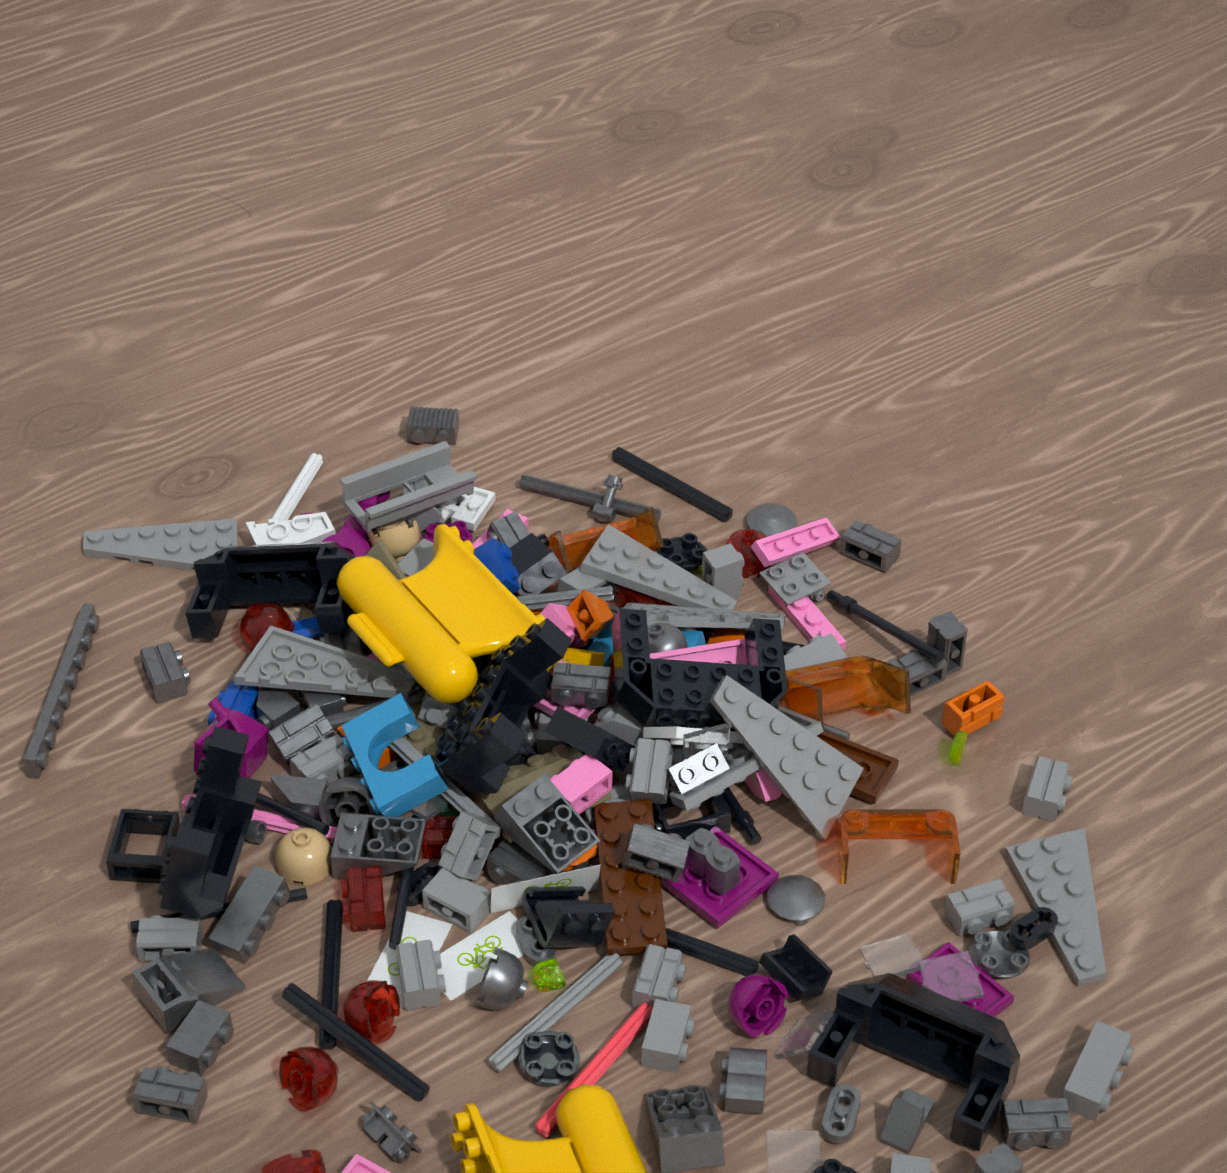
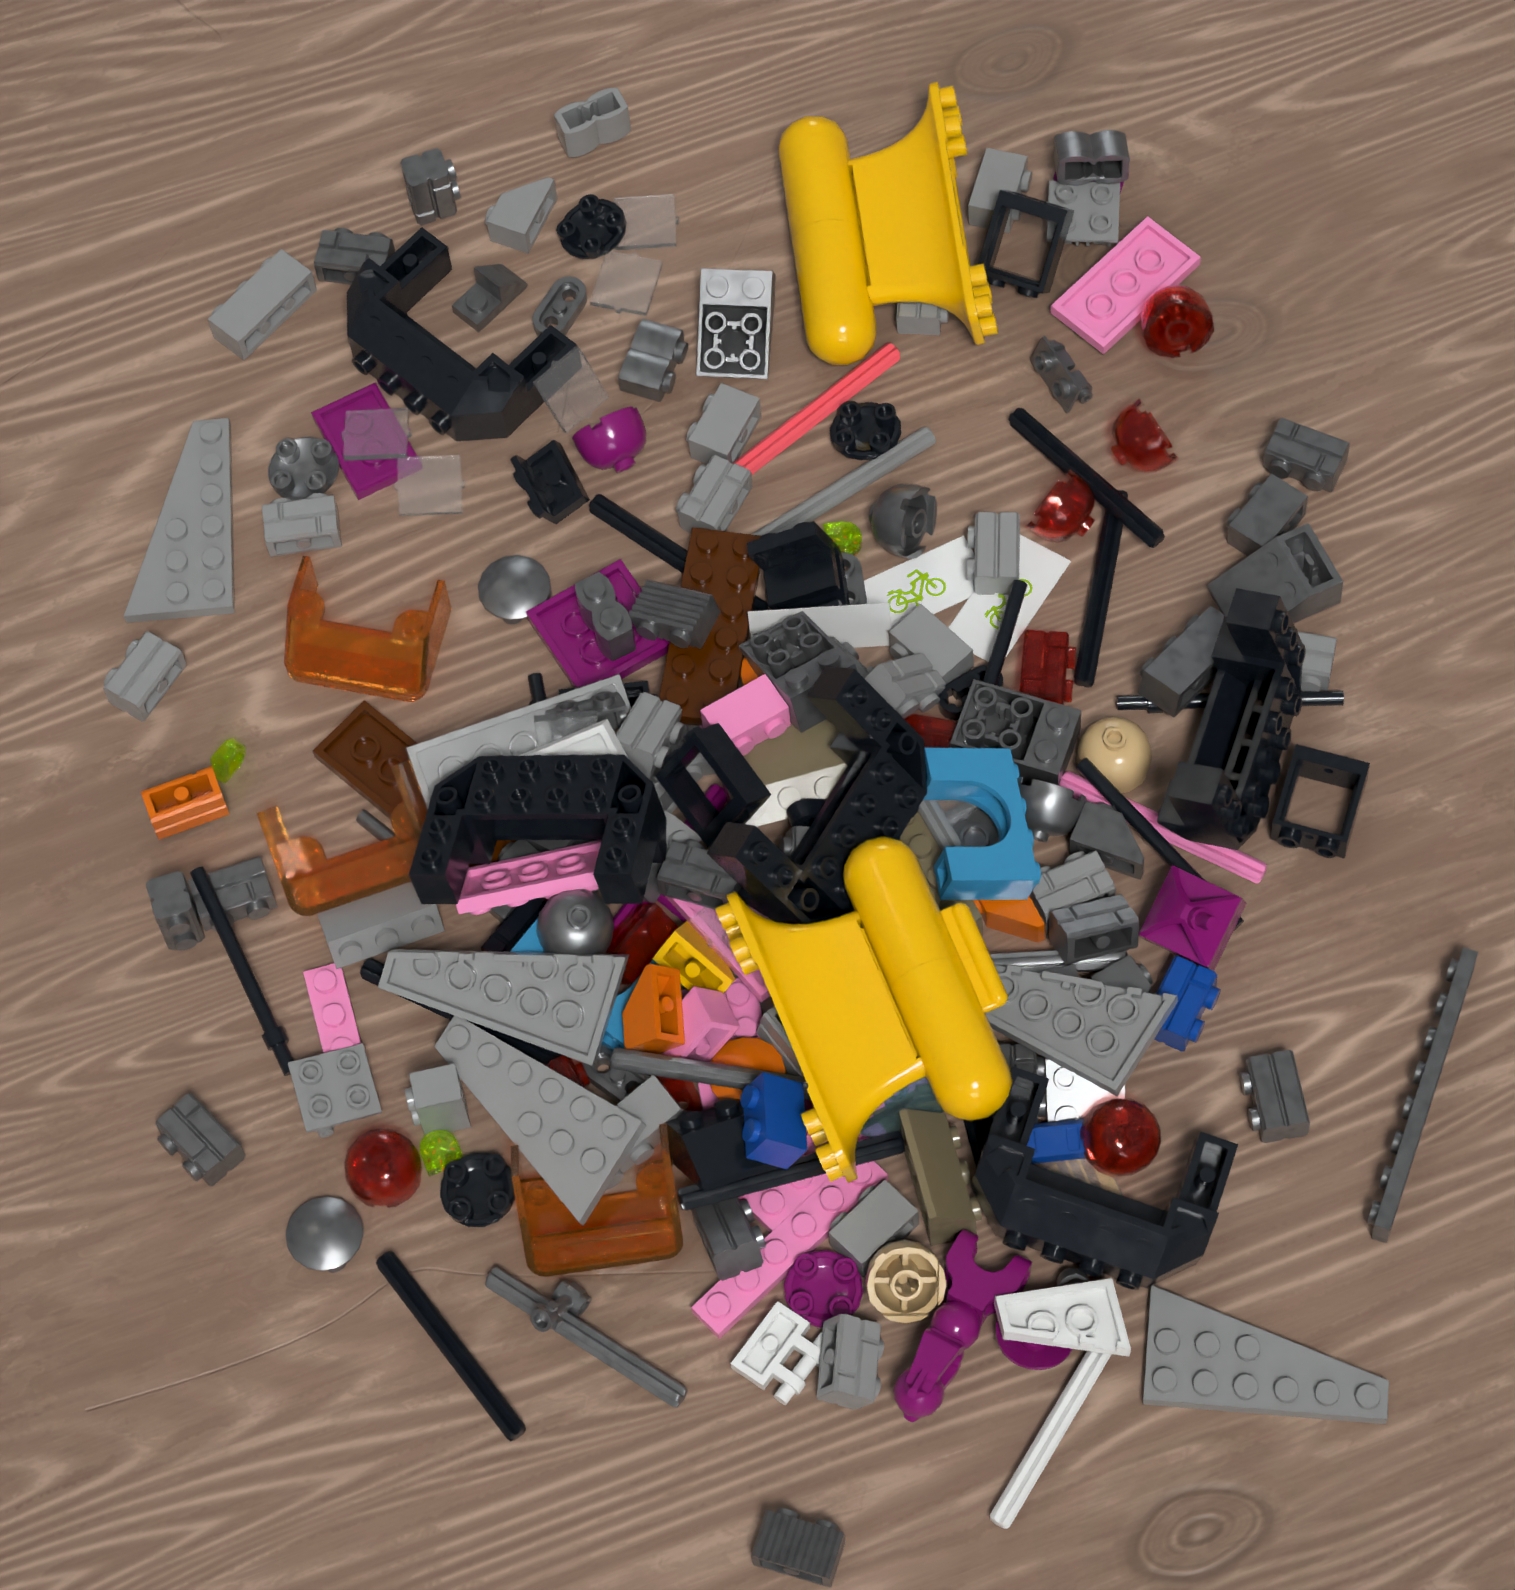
camera: 160 degrees left, 20 degrees up
(427, 463) = (800, 1340): light grey piece -> none
(794, 541) = (309, 1151): bright pink plate -> none
(796, 760) = (461, 711): light grey wing -> none
(1037, 933) = (253, 476): black beam -> none

